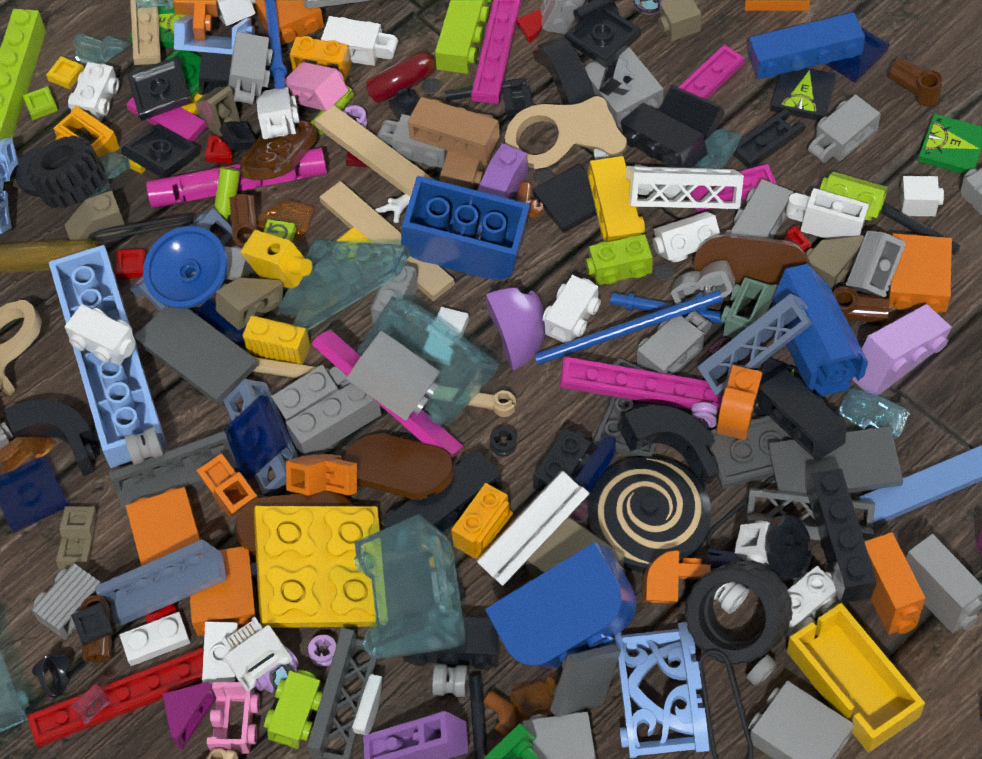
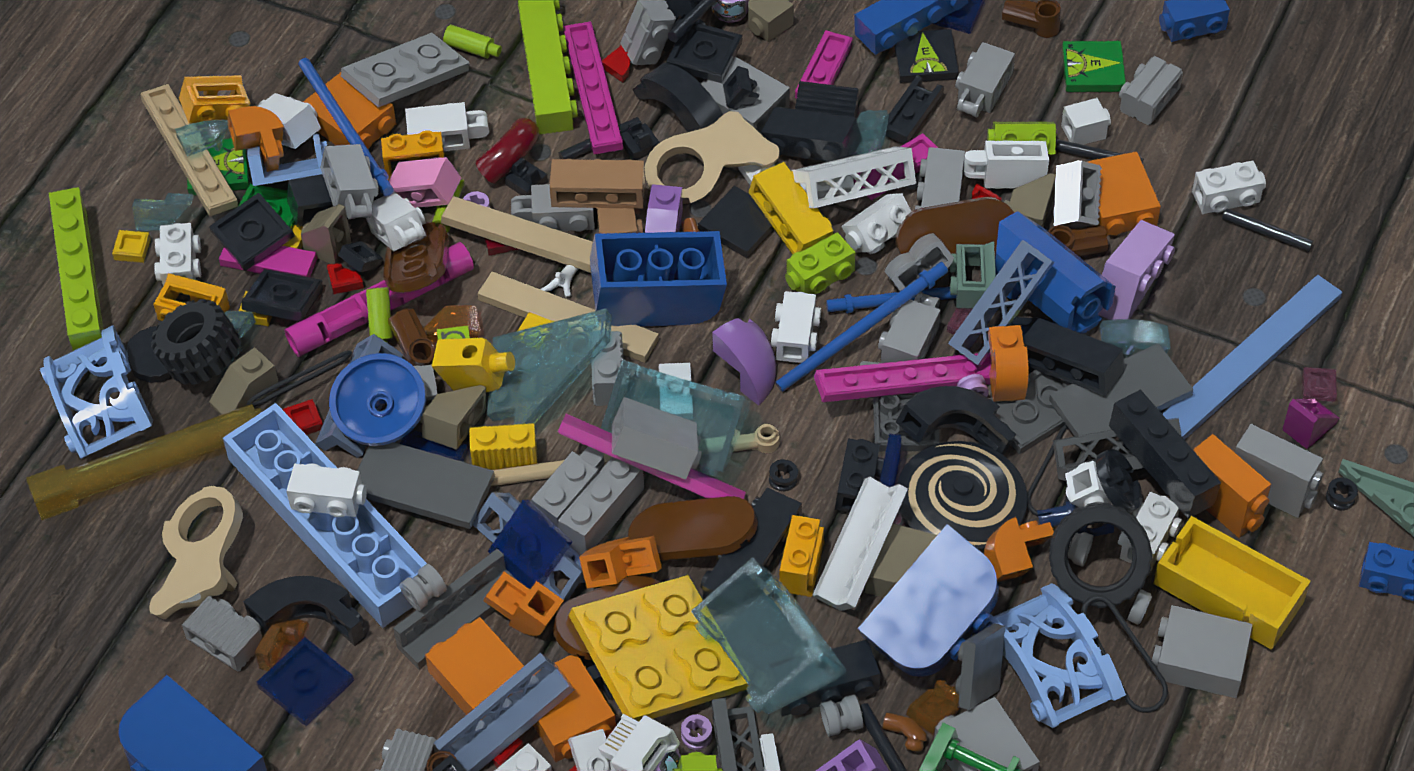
camera: 25 degrees left, 5 degrees down
(40, 103) = (118, 285): lime tile -> none
(77, 537) = (379, 706): dark tan slope -> none

